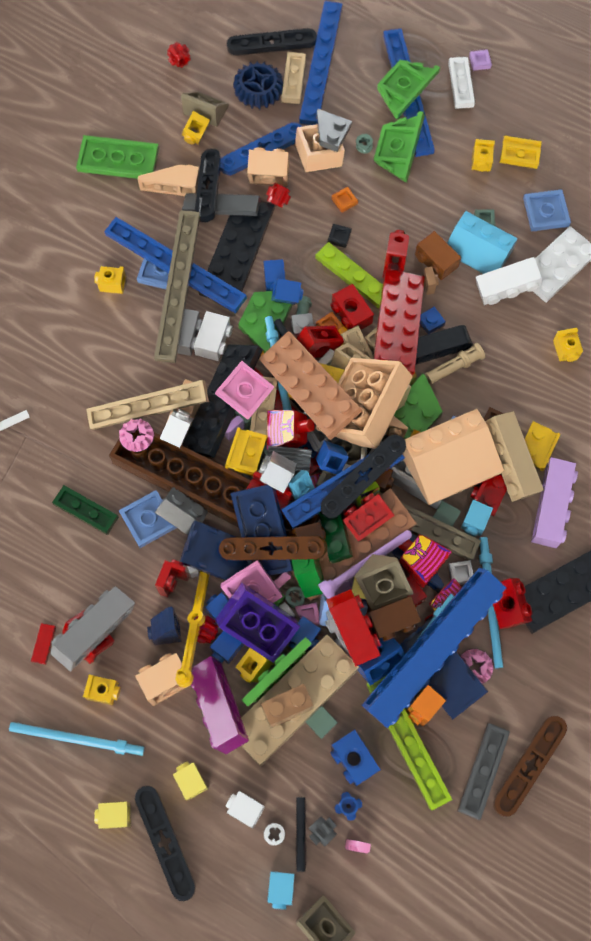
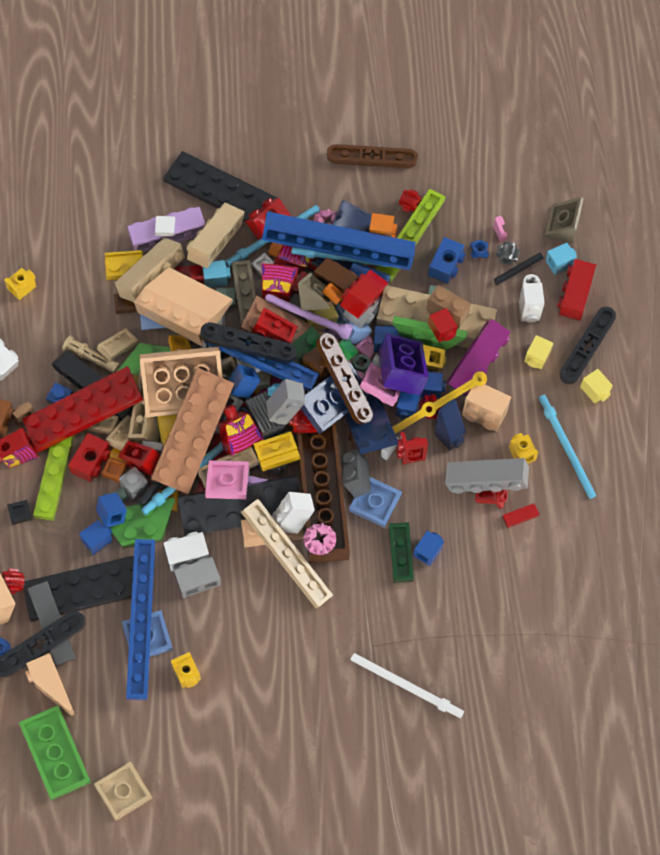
camera: 125 degrees left, 5 degrees down
(54, 189) = (123, 791): none -> tan tile
(70, 535) = (428, 547): none -> blue brick
(177, 287) = (162, 595): dark tan plate -> none
(234, 878) = (576, 289): none -> red brick
(264, 679) = (442, 325): none -> red brick
(373, 598) = (333, 293): none -> orange tile
(449, 767) = (409, 200): none -> red gear
(452, 390) = (117, 344): none -> tan plate
(483, 771) = (395, 182): dark grey tile -> none
(517, 538) = (215, 235): none -> tan brick
(554, 495) = (165, 226): none -> white tile

